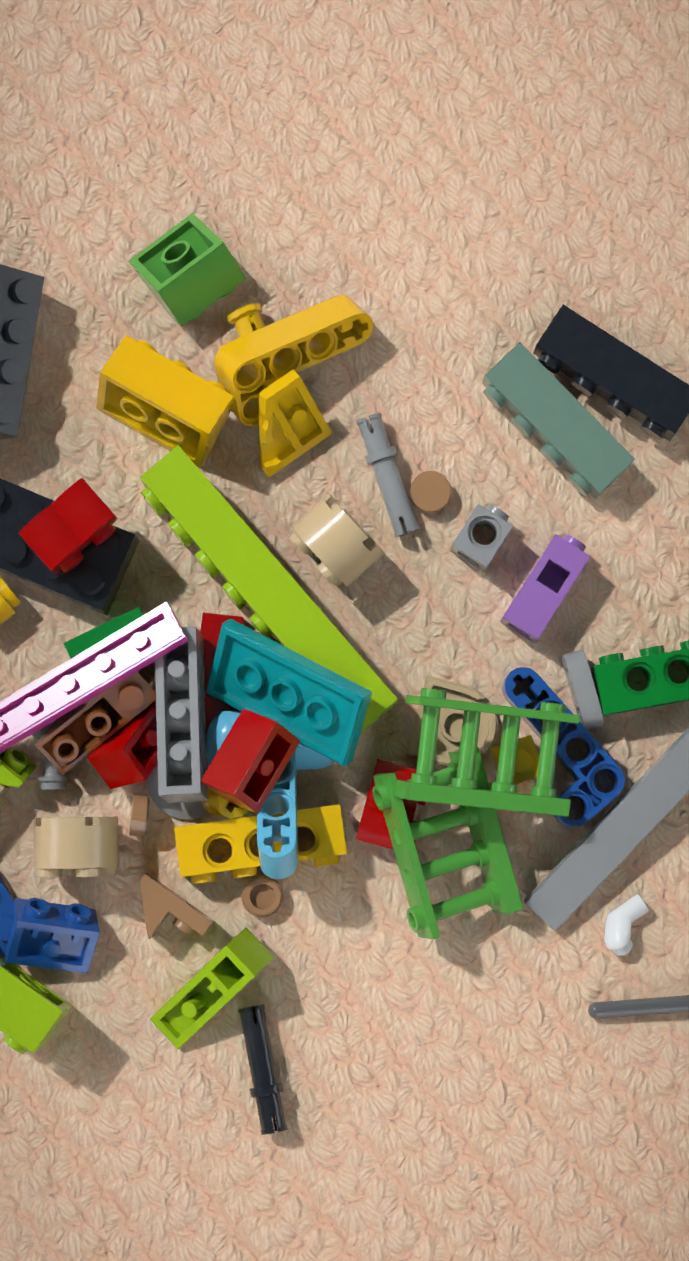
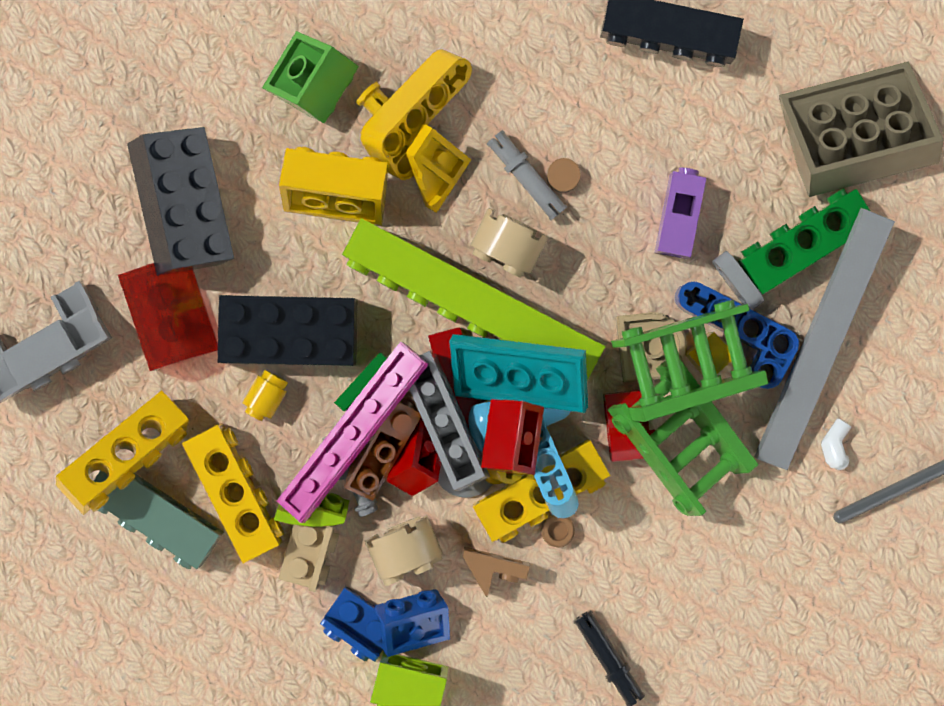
camera: 25 degrees left, 5 degrees up
(69, 526) = (303, 313): red brick -> none
(139, 815) = (442, 507): medium nougat tile -> none
(212, 988) = (548, 613): lime slope -> none
(469, 549) = (617, 209): light grey brick -> none
(557, 421) = (640, 83): sand green brick -> none

